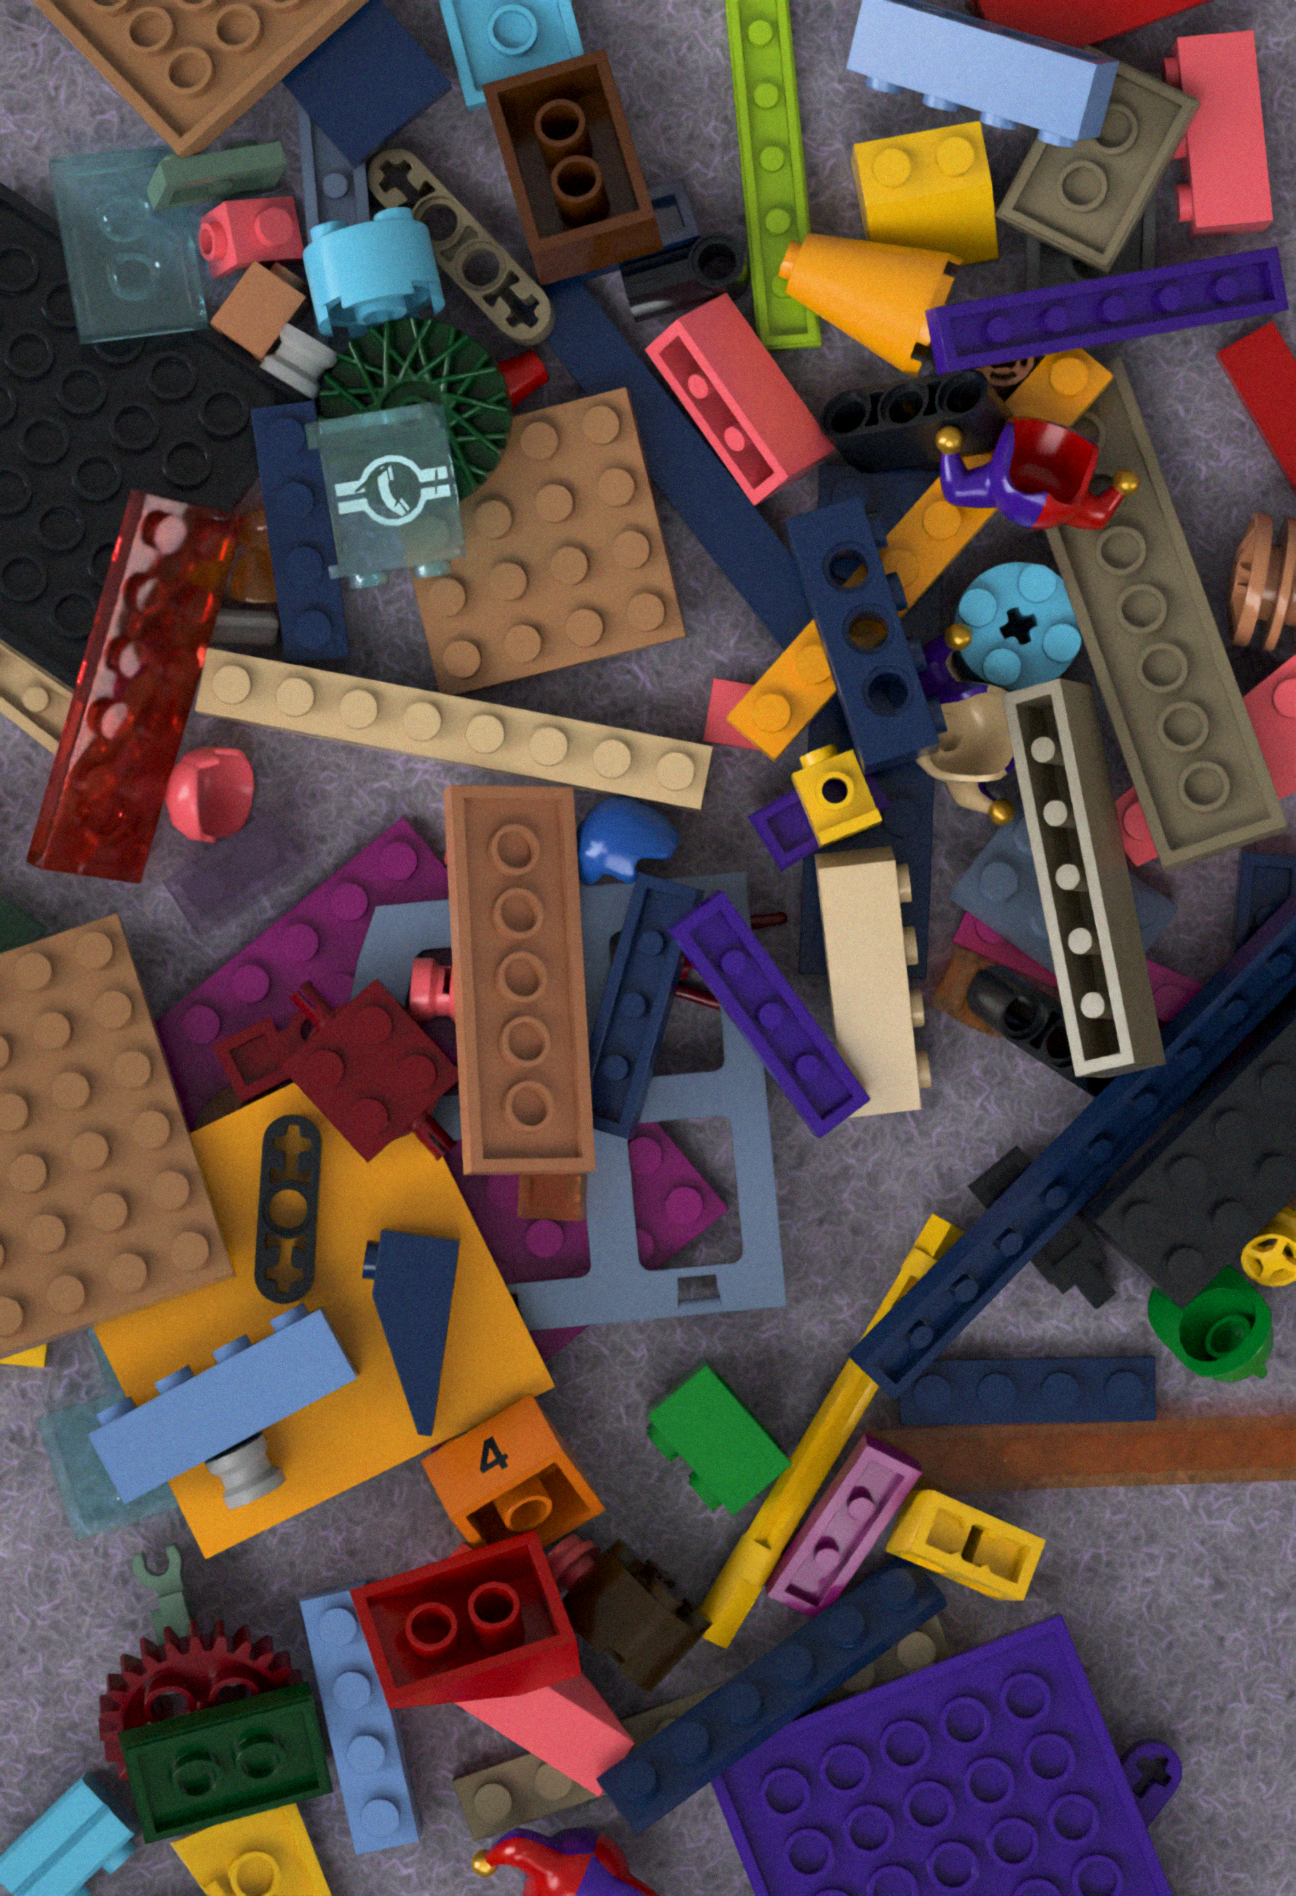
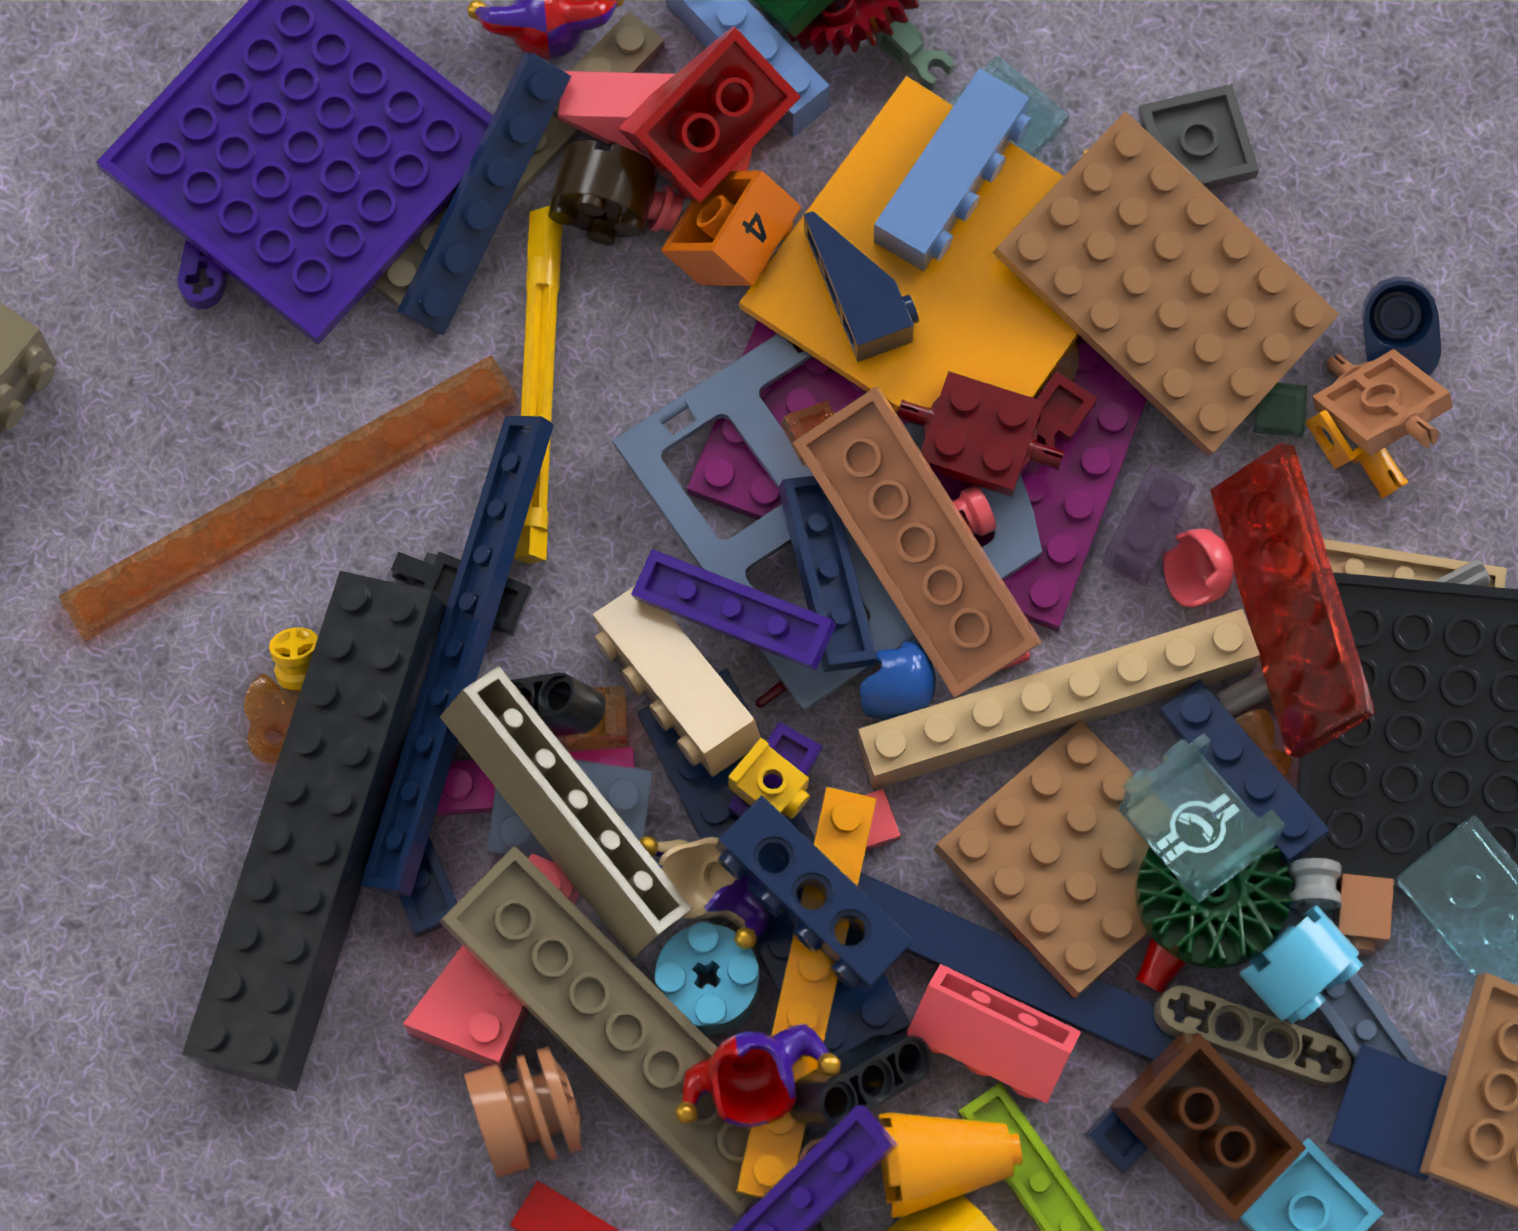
camera: 150 degrees right, 15 degrees down
(232, 173) = (1438, 1003): sand green plate -> none
(246, 1471) = (909, 133): light grey wheel -> none
(250, 231) = (1402, 965): coral bracket -> none
(300, 1258) = (979, 279): black beam -> none
(677, 278) = (1083, 1099): black piece -> none
(716, 1437) = (611, 330): green brick -> none
(843, 1526) = (494, 322): magenta plate -> none
(965, 1545) = (405, 350): yellow brick -> none
(1031, 1391) = (412, 482): dark blue plate -> none
(1220, 1332) = (303, 578): green piece -> none

